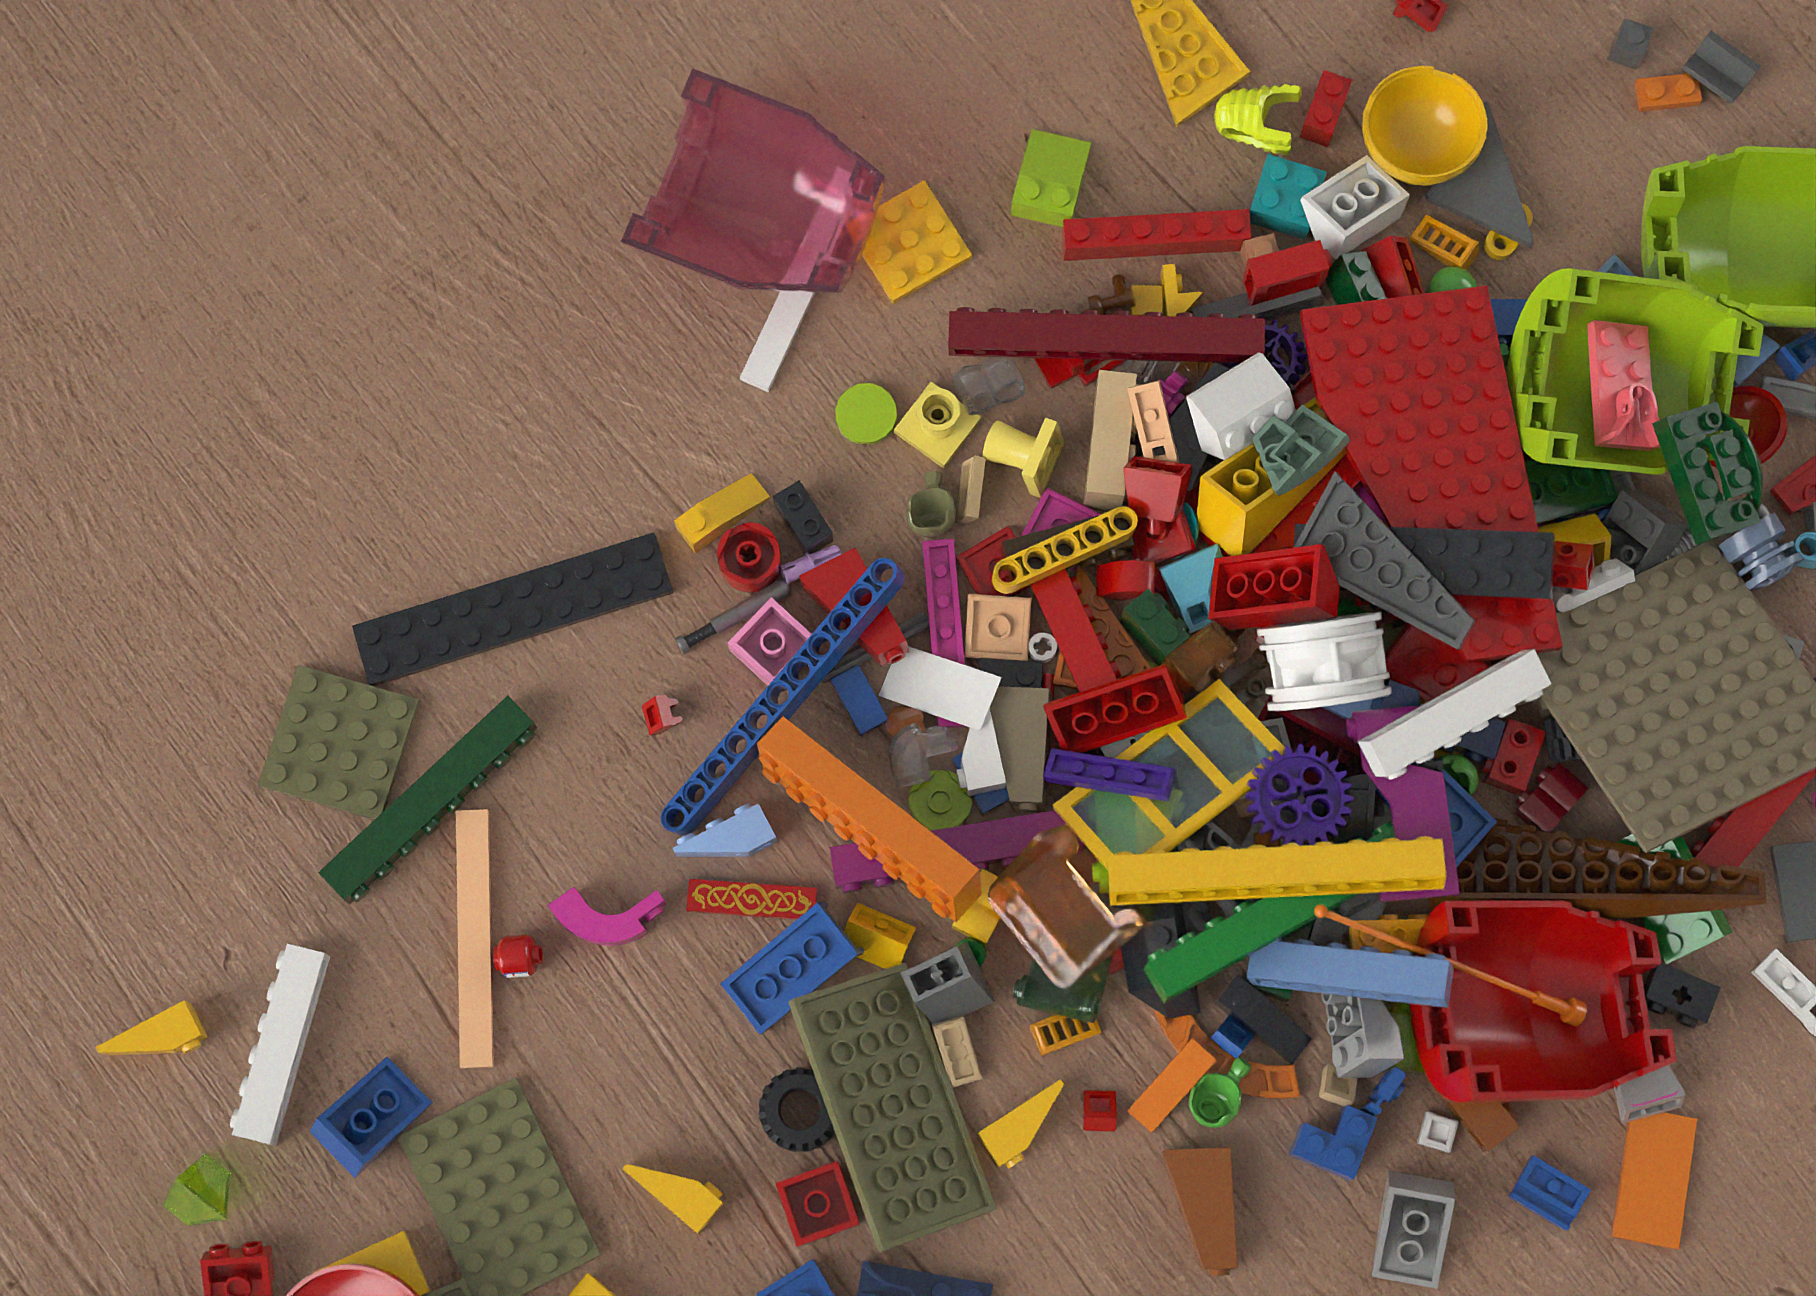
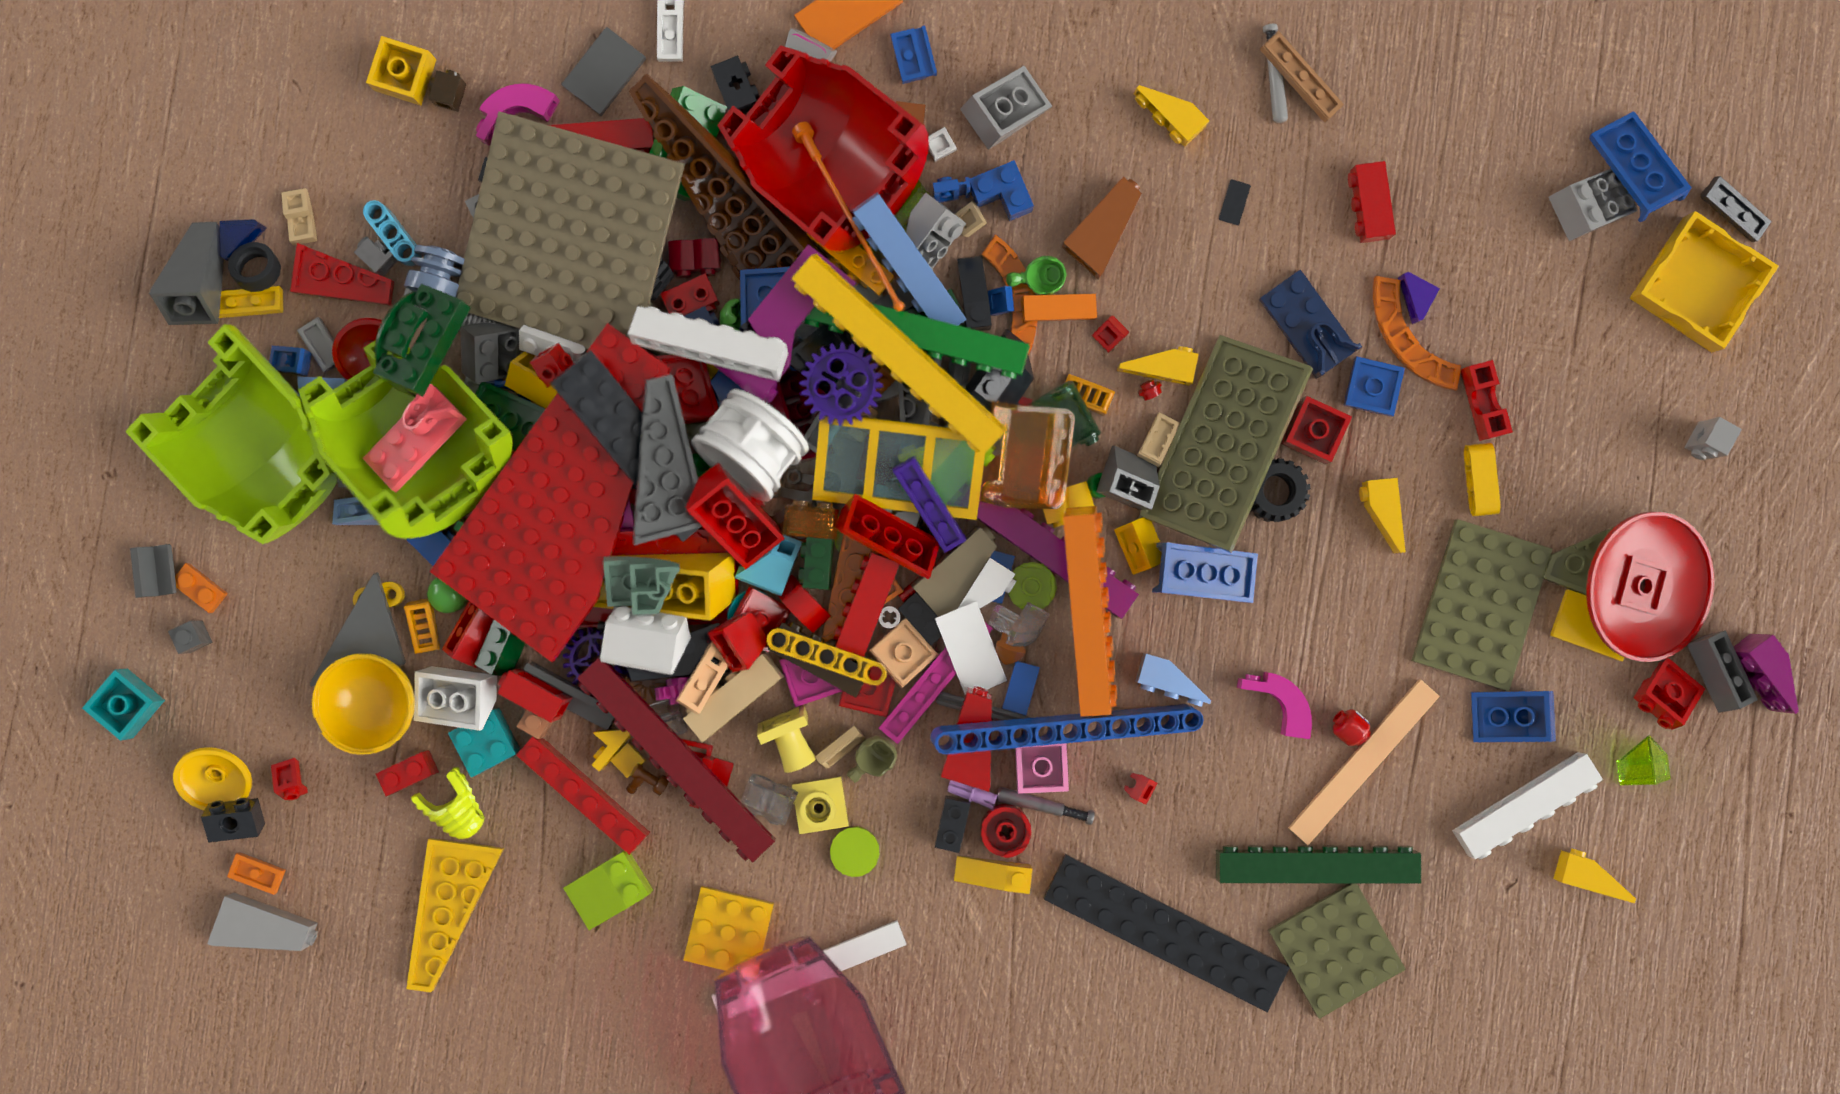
camera: 135 degrees left, 10 degrees up
(749, 899) = (1190, 634): red tile -> none
(1010, 1091) = (1150, 389): none -> red plate

